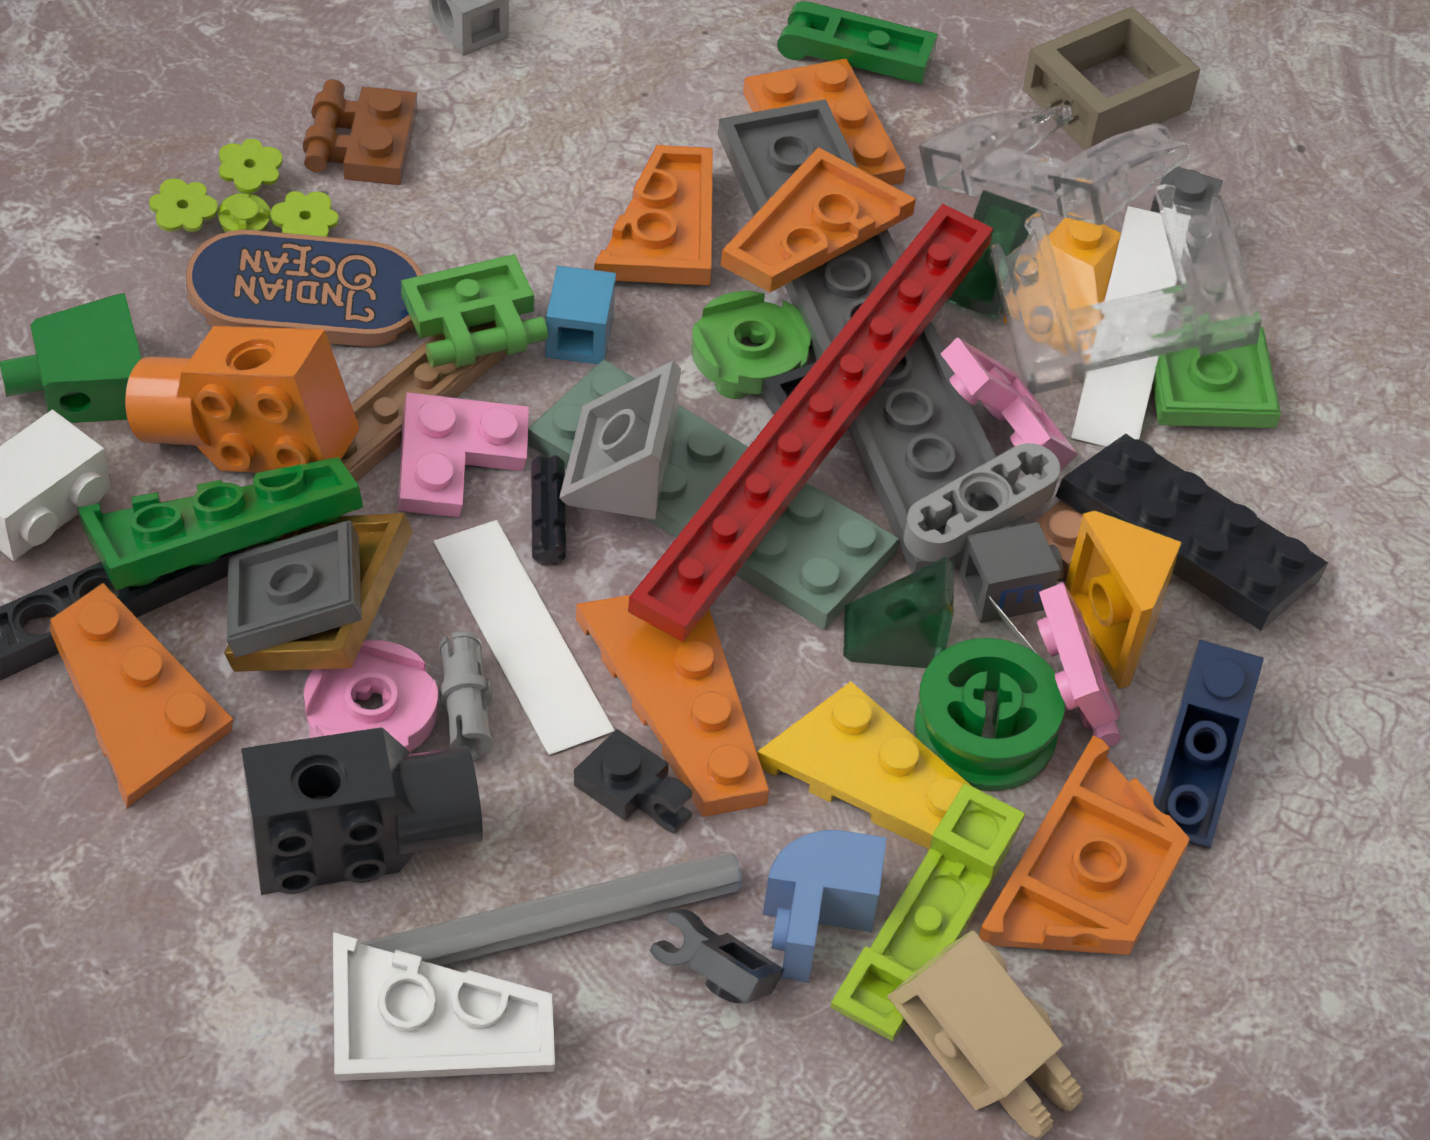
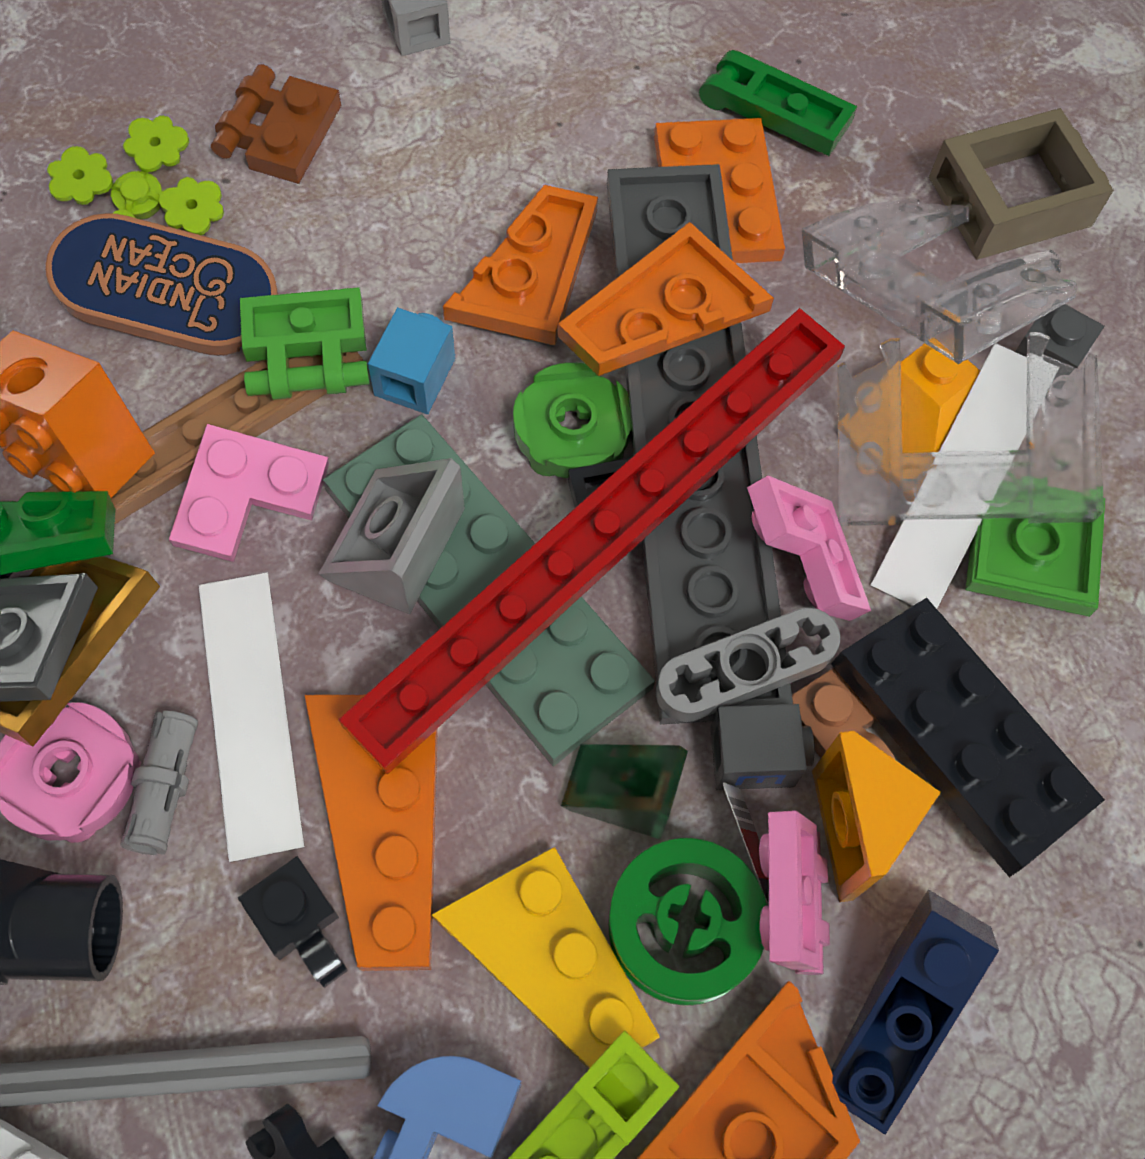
camera: 15 degrees right, 15 degrees up
(548, 510) = (311, 590): black axle -> none
(980, 287) = (862, 336): clear green slope -> none

